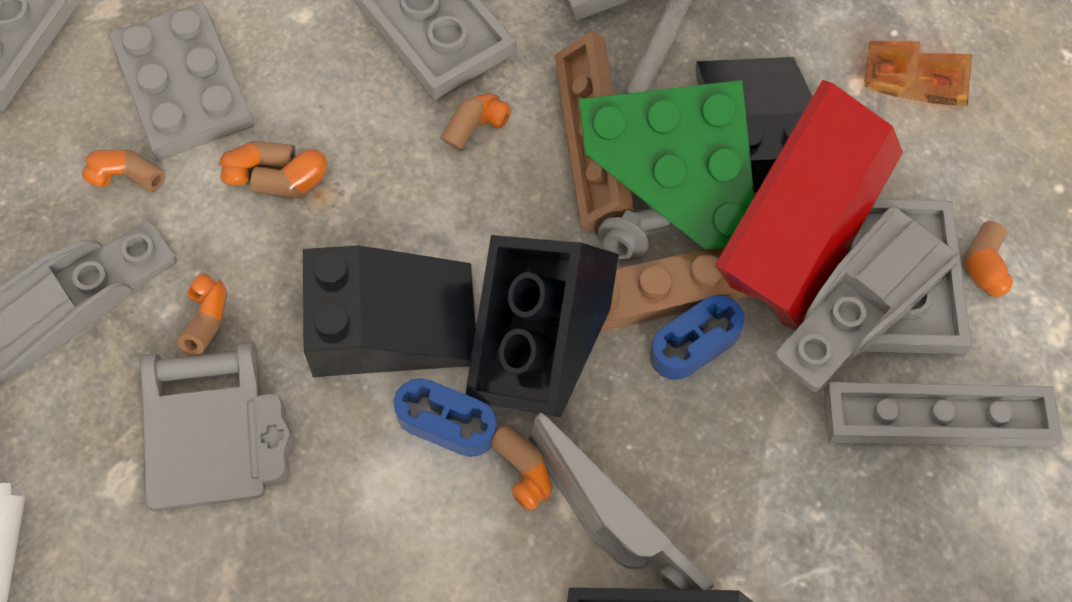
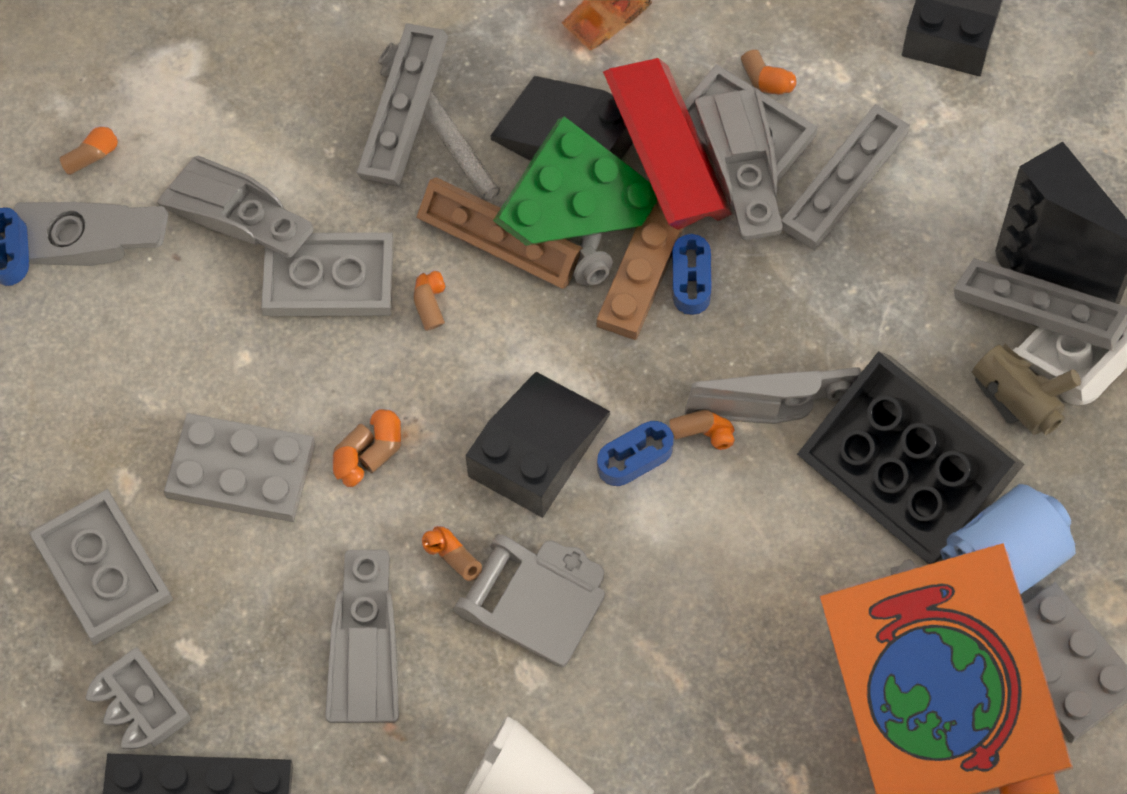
camera: 50 degrees left, 0 degrees up
(104, 163) = (284, 543): arm -> none
(538, 321) = (621, 354): black slope -> none

